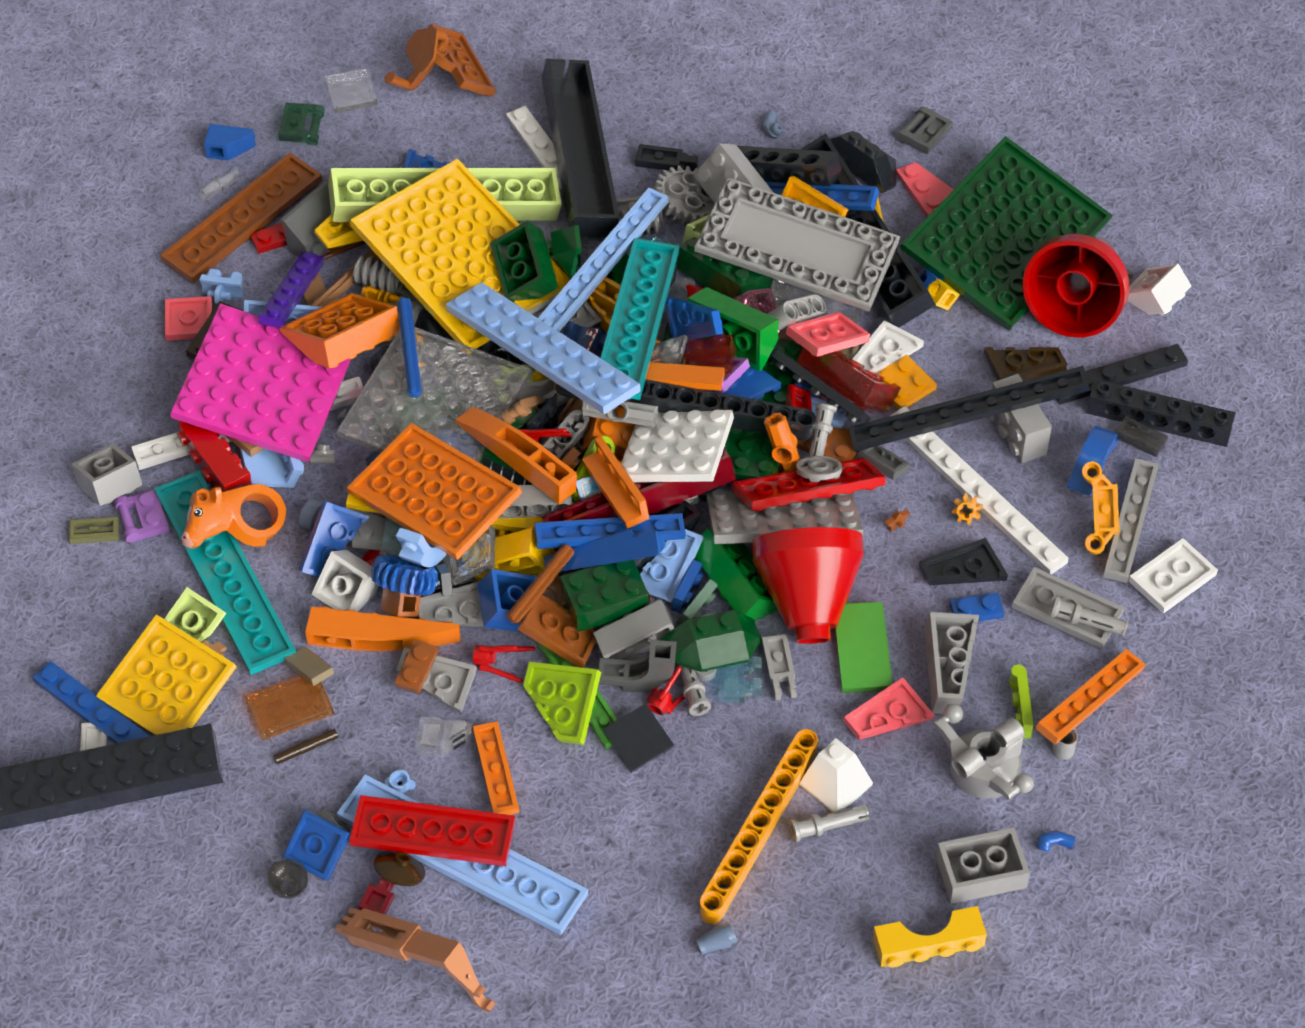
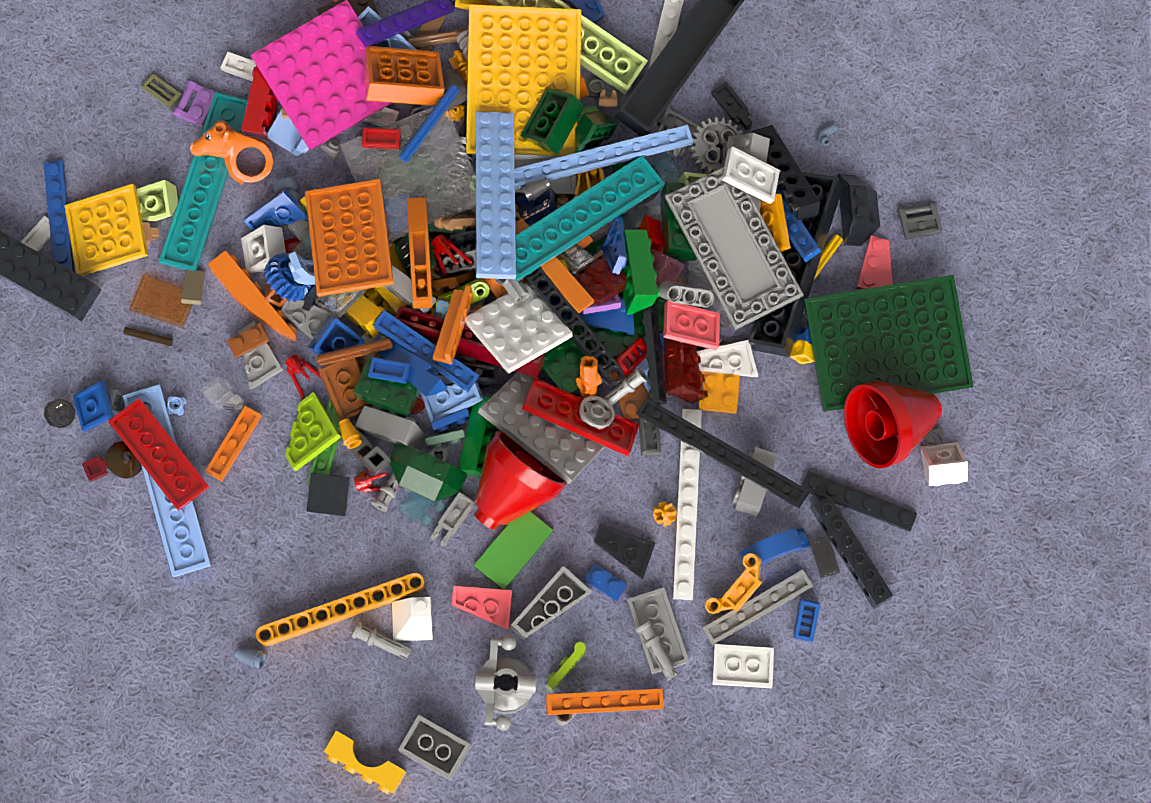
camera: 40 degrees right, 20 degrees up
(107, 474) = (193, 61): light grey brick -> none
(374, 393) = (381, 138): none -> red tile
(407, 940) = (77, 514): nougat hinge -> none
(552, 225) = (605, 101): none -> medium nougat tile
(570, 324) = (535, 189): none -> flat silver cone
(595, 566) = (389, 370): none -> blue tile
(607, 663) = (350, 435): none -> light orange cone
(755, 172) = (750, 174): none -> white plate
(897, 519) = (616, 484): dark orange piece -> none
(1027, 363) = (803, 443): dark brown wing -> none
(1055, 837) = (498, 766): blue arm -> none
(1179, 479) = (816, 605): none -> blue slope

